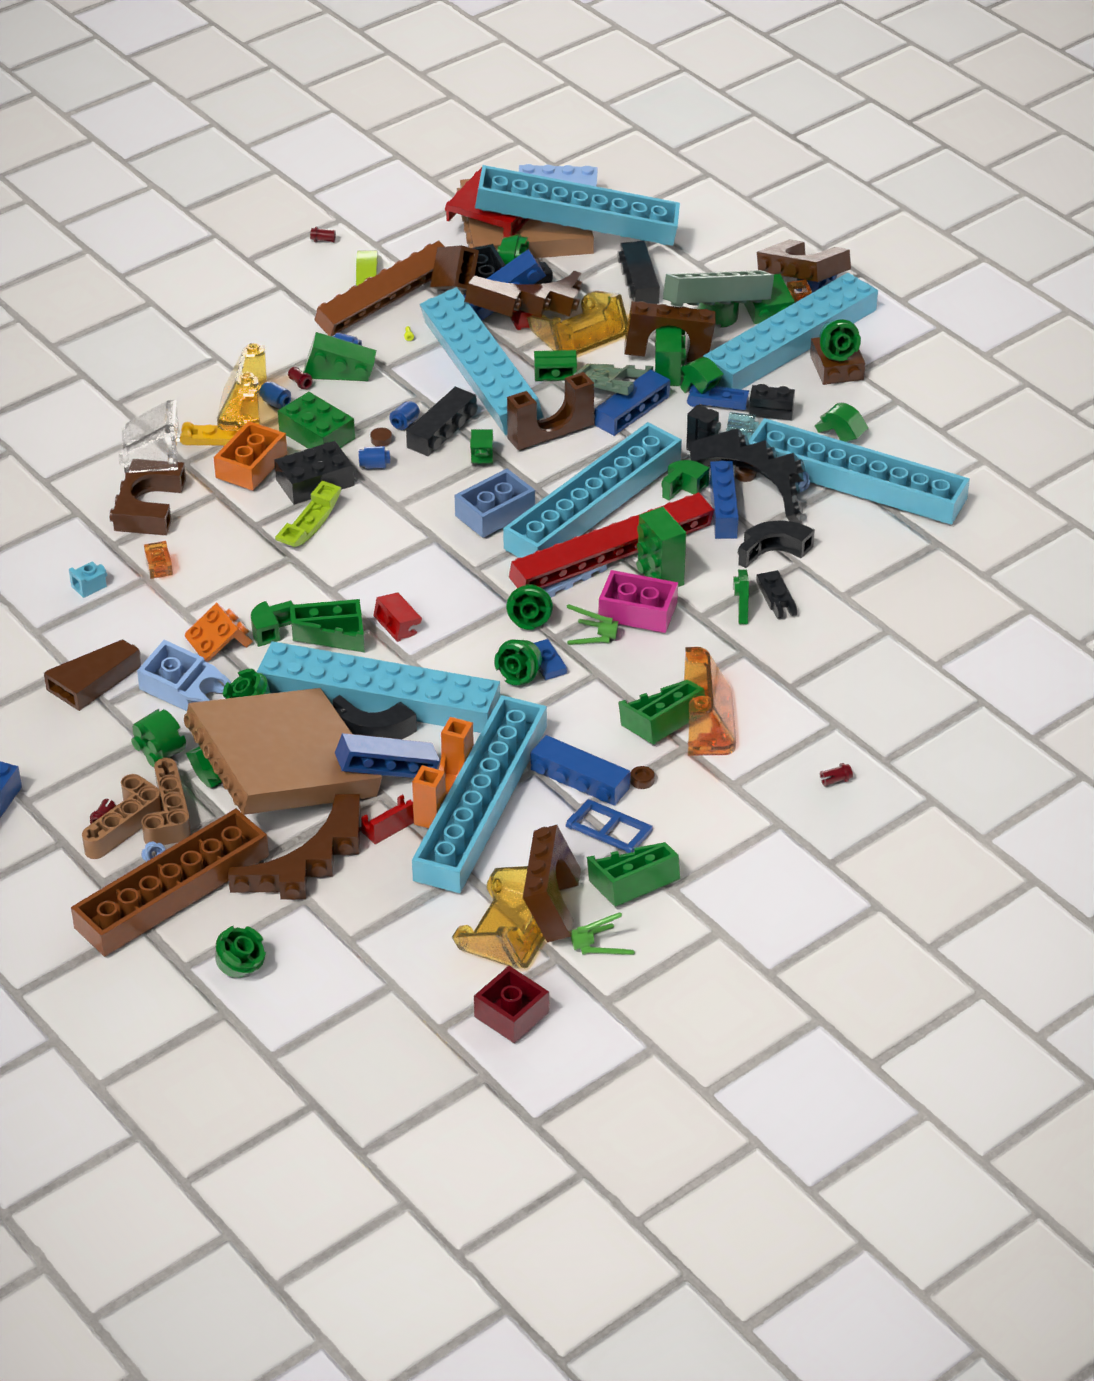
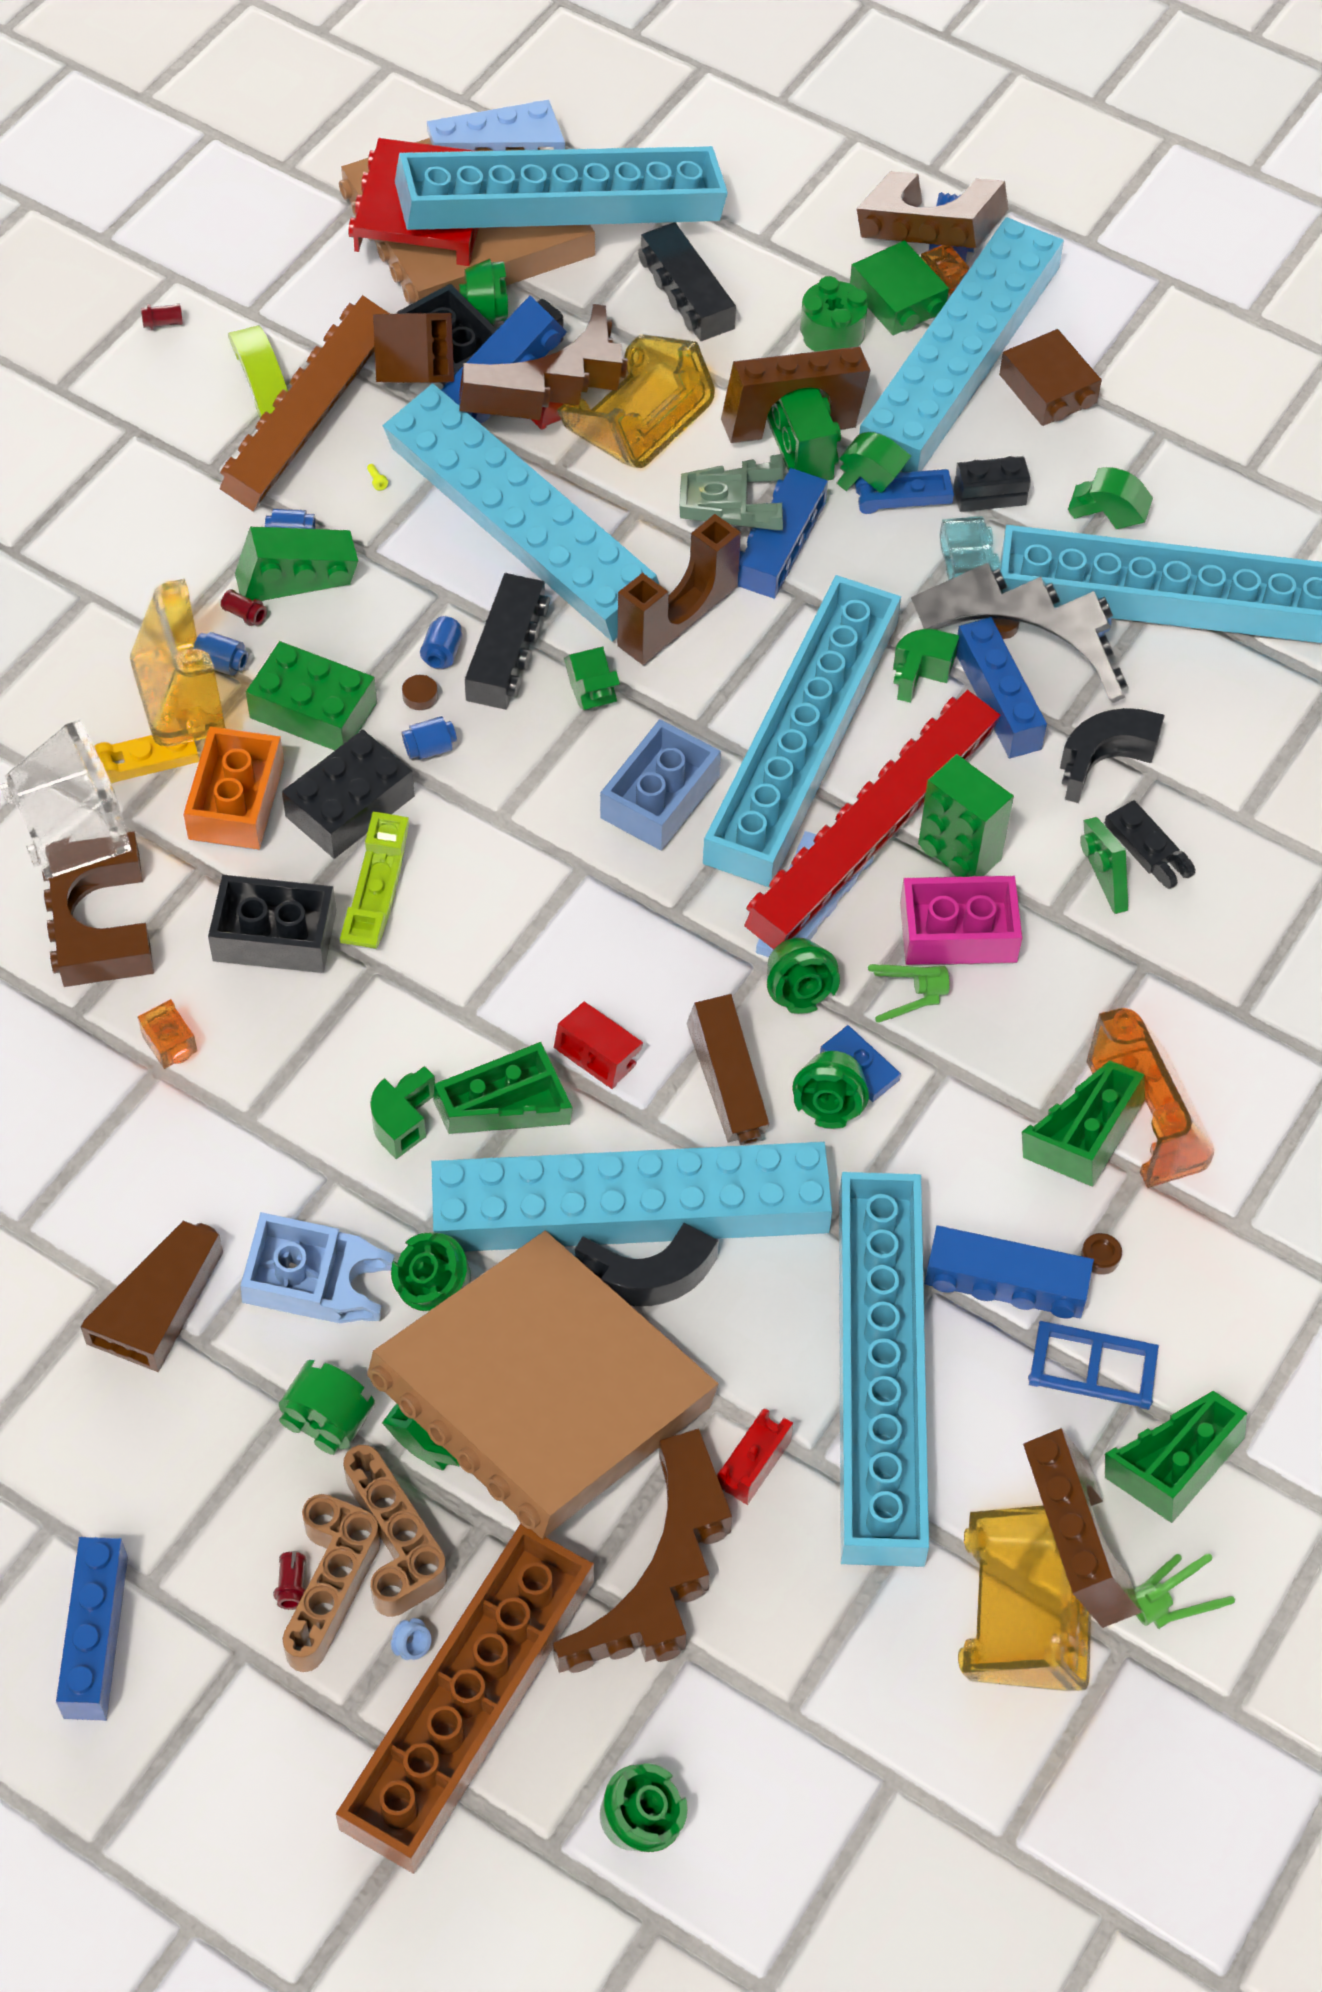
camera: 20 degrees left, 15 degrees up
(88, 578) = (67, 1102): medium azure brick -> none
(216, 630) = (324, 1157): orange bracket -> none
(240, 520) = (272, 923): none -> black brick
(384, 755) = (713, 1344): blue brick -> none
(433, 785) = (817, 1375): orange arch -> none
(464, 635) = (728, 1069): none -> reddish brown slope
(511, 1004) = (1109, 1777): dark red brick -> none
(554, 365) = (635, 489): green brick -> none
(701, 423) = (919, 563): black brick -> none
(718, 287) = (848, 302): sand green brick -> none
(839, 339) = (1059, 353): green cone -> none

